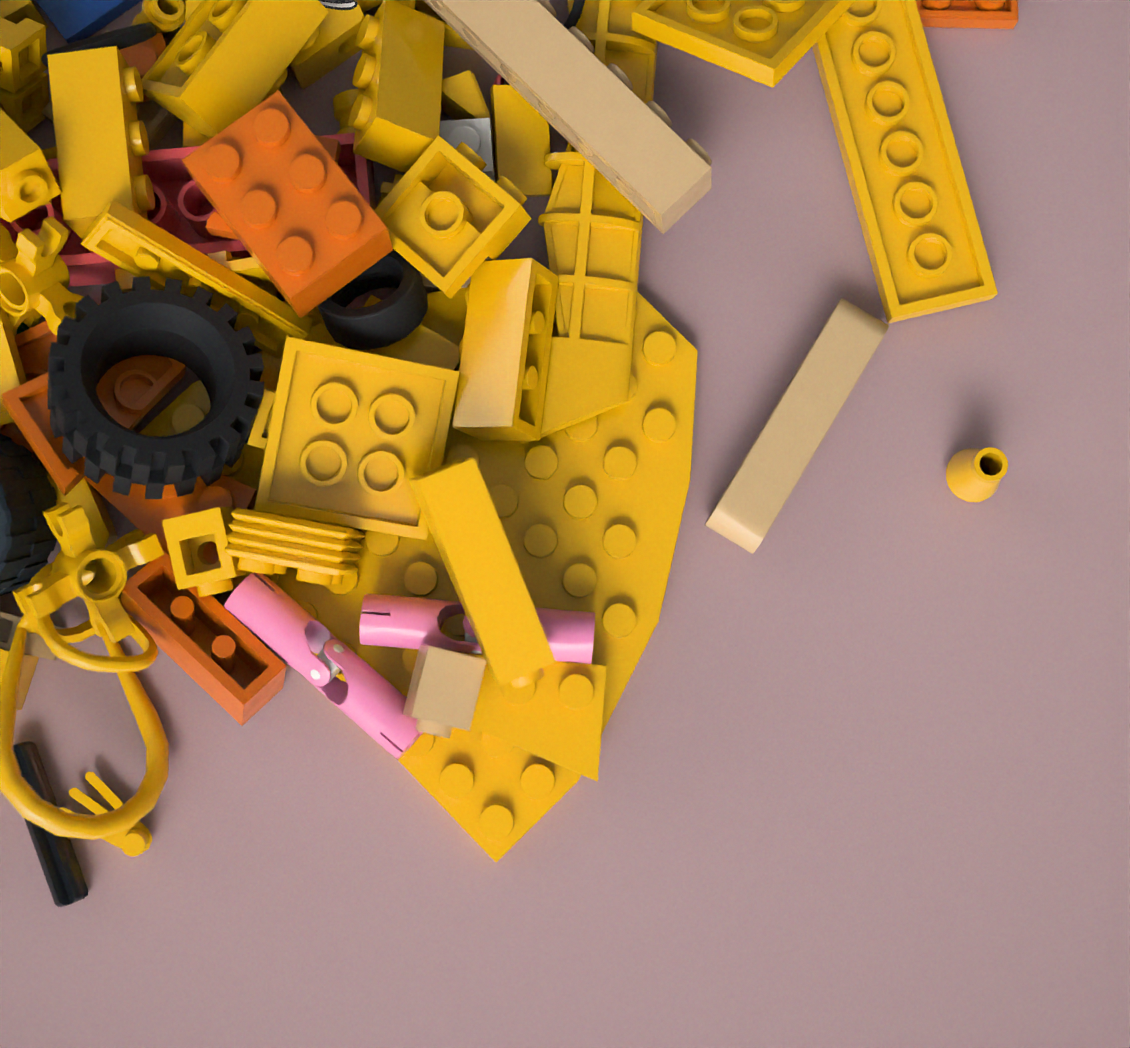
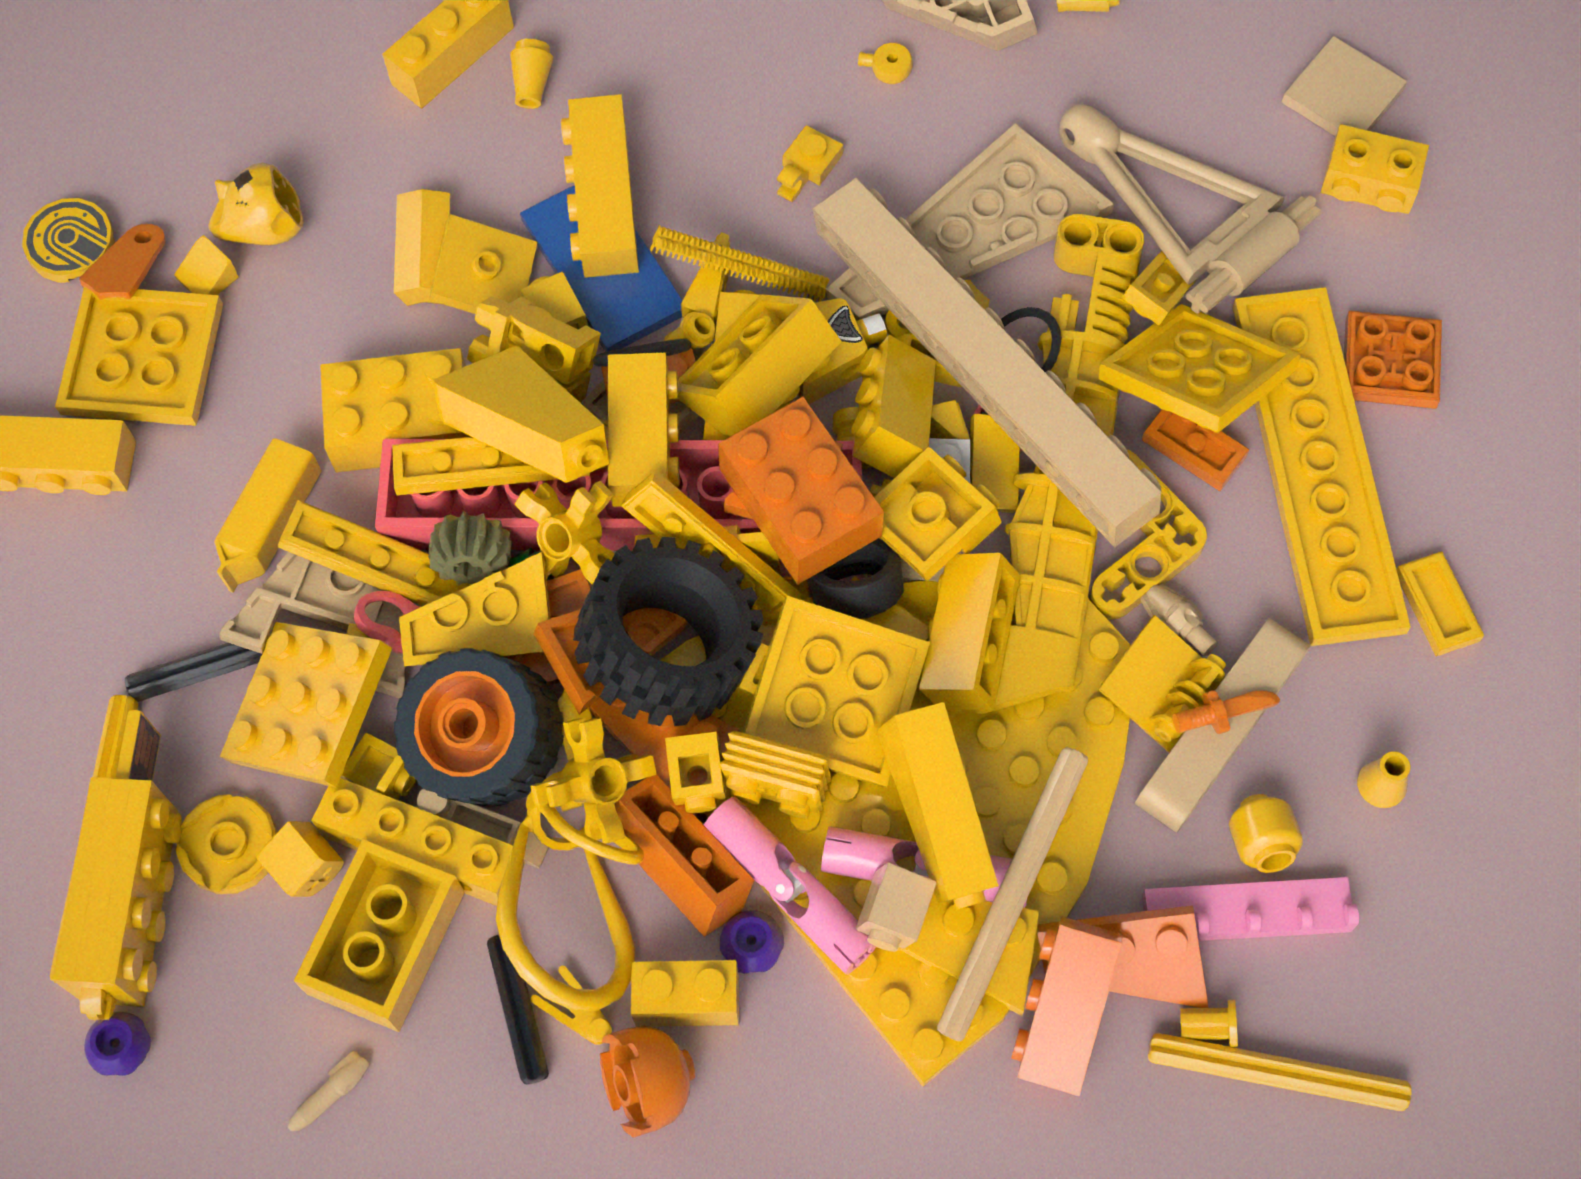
camera: 10 degrees right, 15 degrees down
(193, 893) = (647, 1077): none -> orange cylinder
(224, 794) = (685, 993): none -> yellow brick
(314, 722) = (755, 957): none -> dark purple plate
(575, 655) = (1012, 894): none -> tan axle
(645, 769) = (1067, 1005): none -> brick
(708, 699) = (1156, 955): none -> wing
(712, 222) = (1157, 545): none -> yellow beam
(727, 384) = (1159, 679): none -> yellow hinge
(738, 304) = (1179, 615): none -> tan piece
(748, 104) = (1199, 450): none -> orange plate
(790, 417) = (1217, 711): none -> orange piece
(801, 764) = (1210, 1023): none -> yellow piece
(836, 631) = (1263, 907): none -> bright pink hinge
(850, 546) = (1265, 833): none -> yellow head
(878, 808) = (1280, 1071): none -> yellow axle
(1026, 260) = (1439, 604): none -> yellow tile

